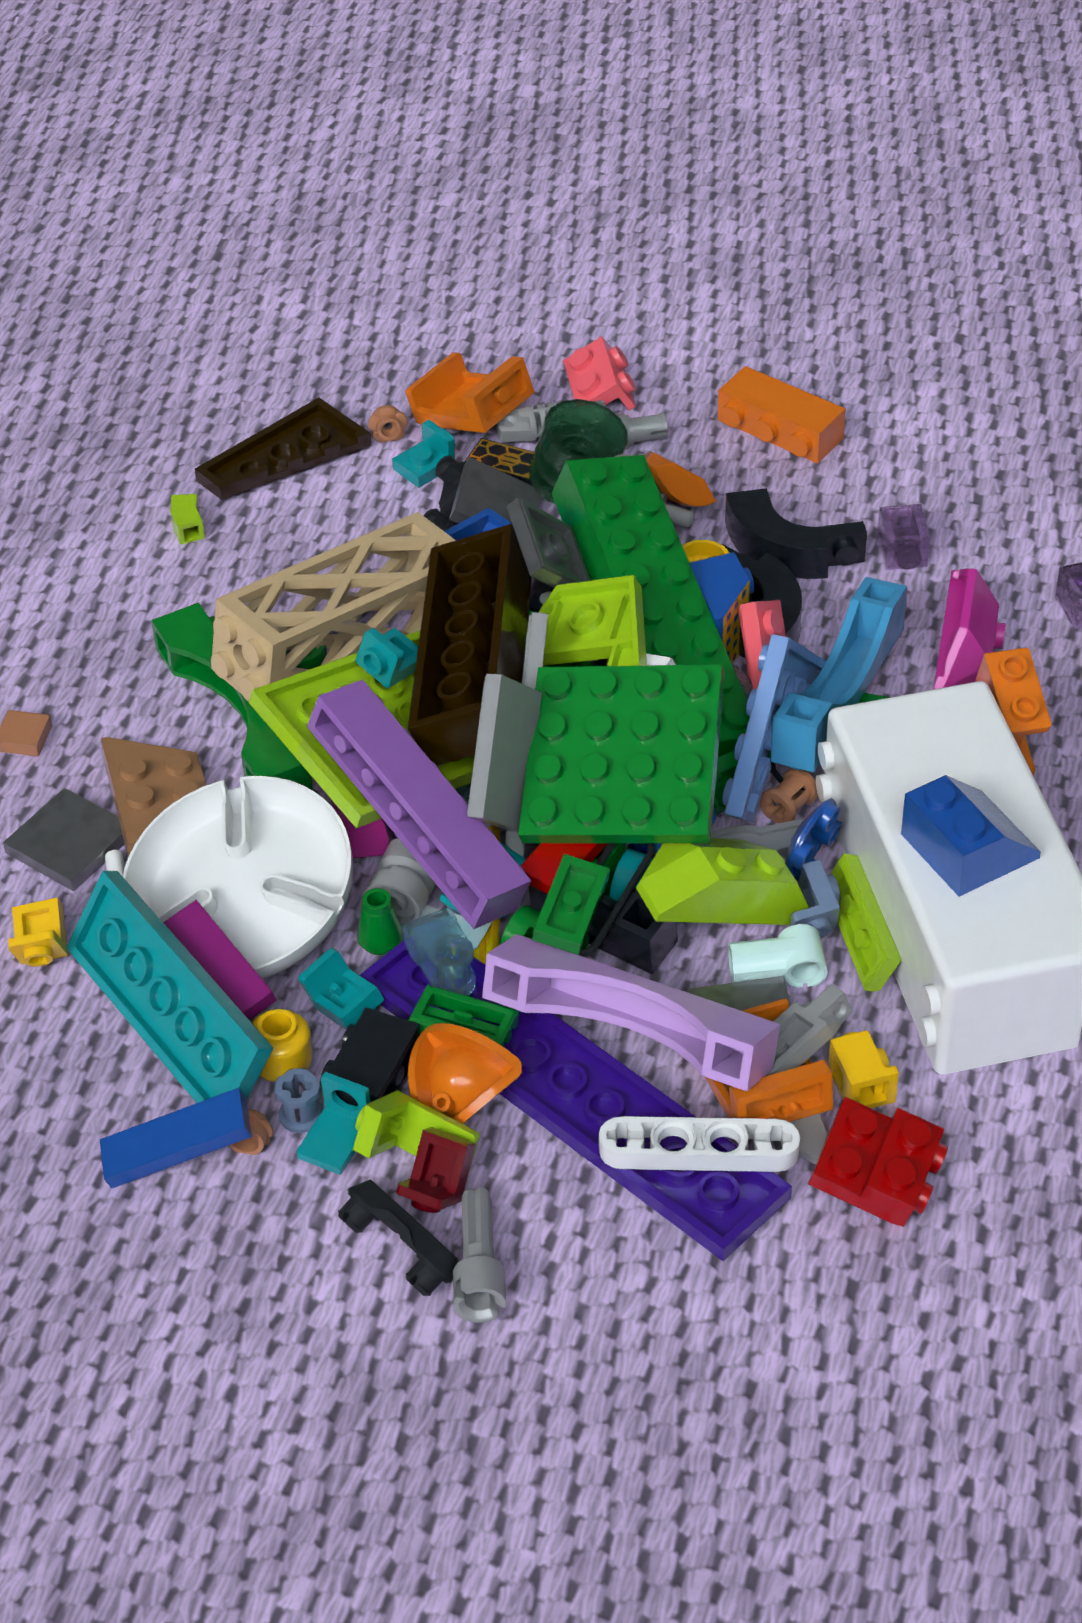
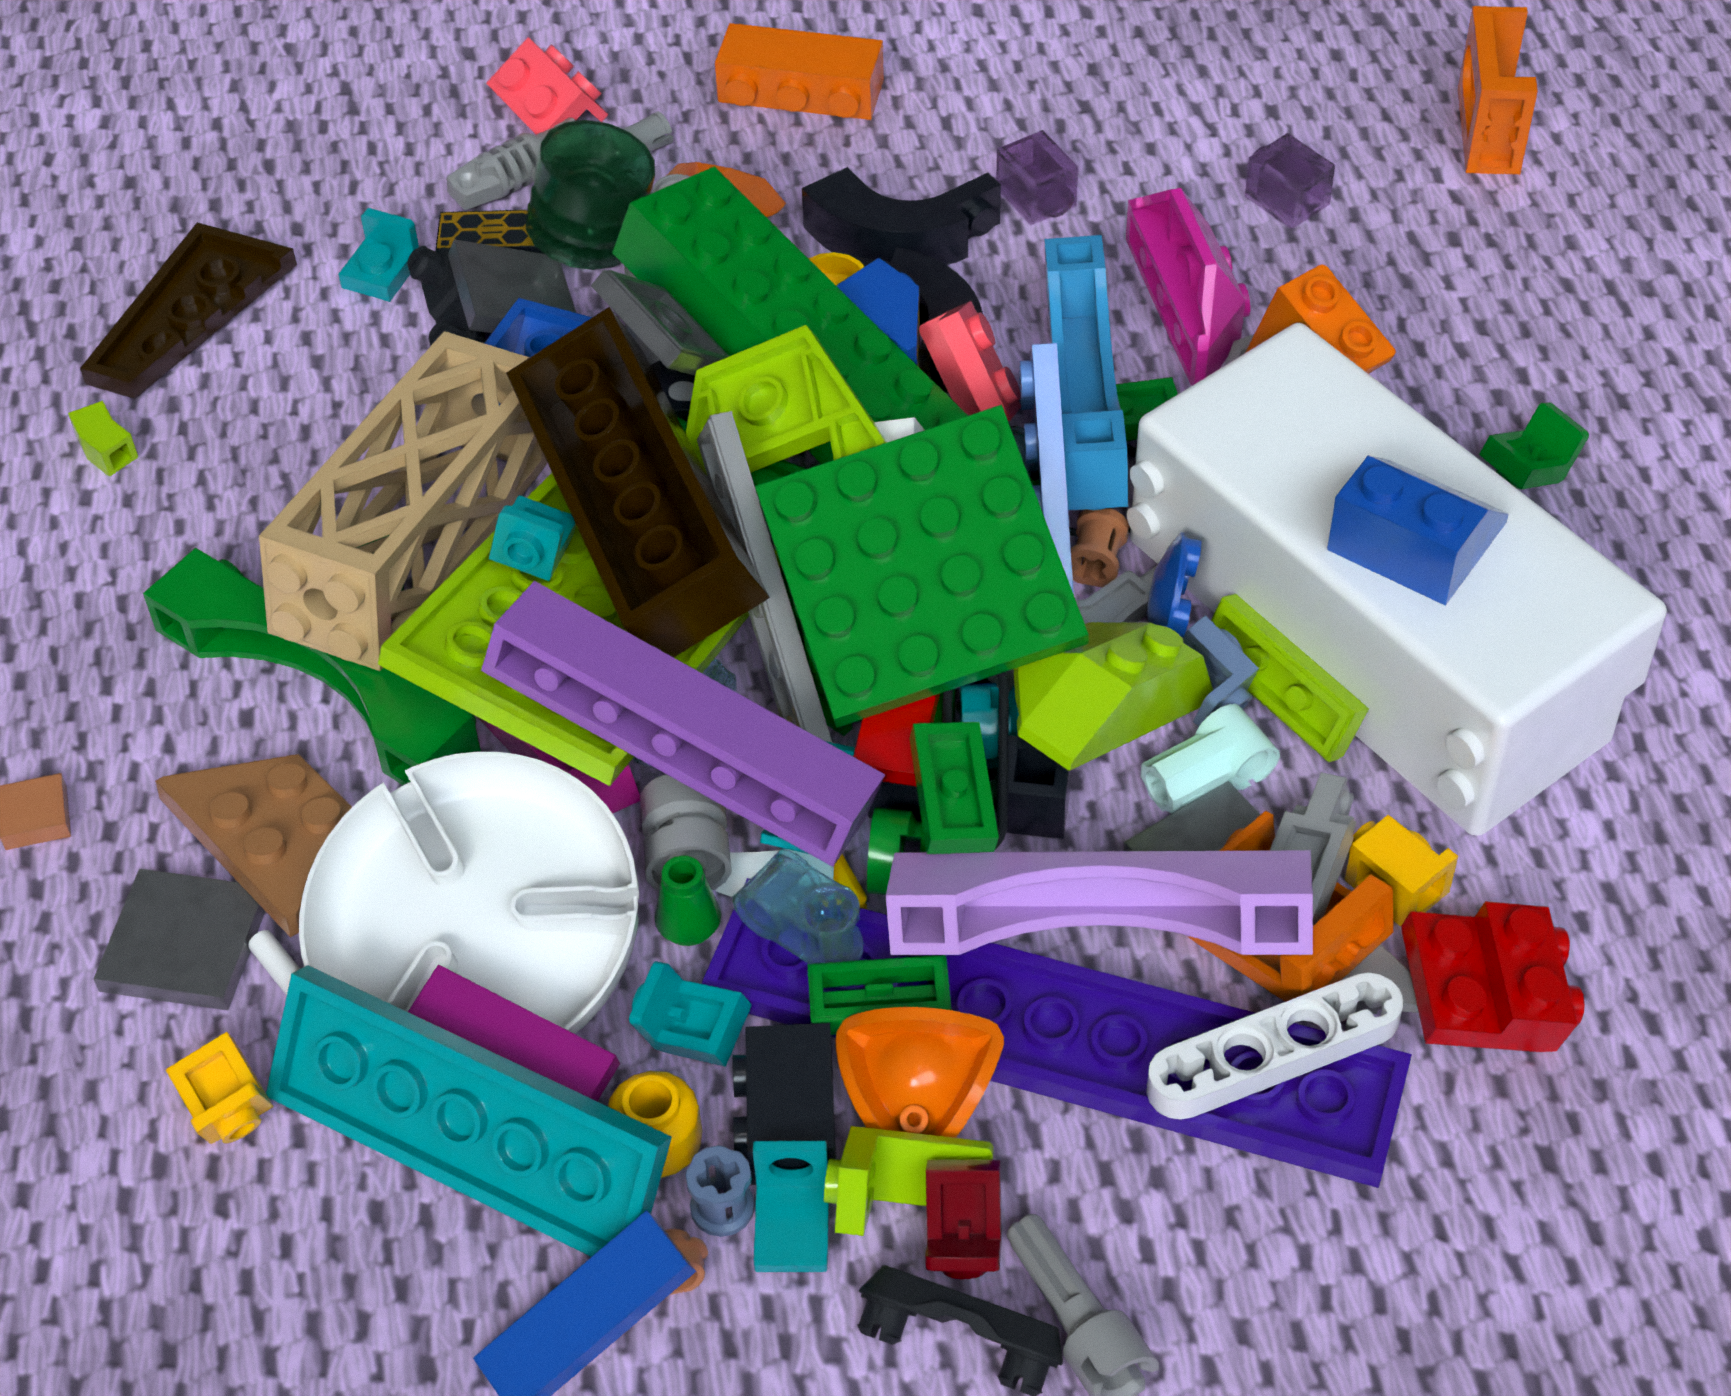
camera: 25 degrees left, 5 degrees up
(383, 415) = (298, 222): nougat plate -> none
(469, 399) = (398, 166): orange panel -> none
(501, 752) = (774, 616): light grey tile -> none

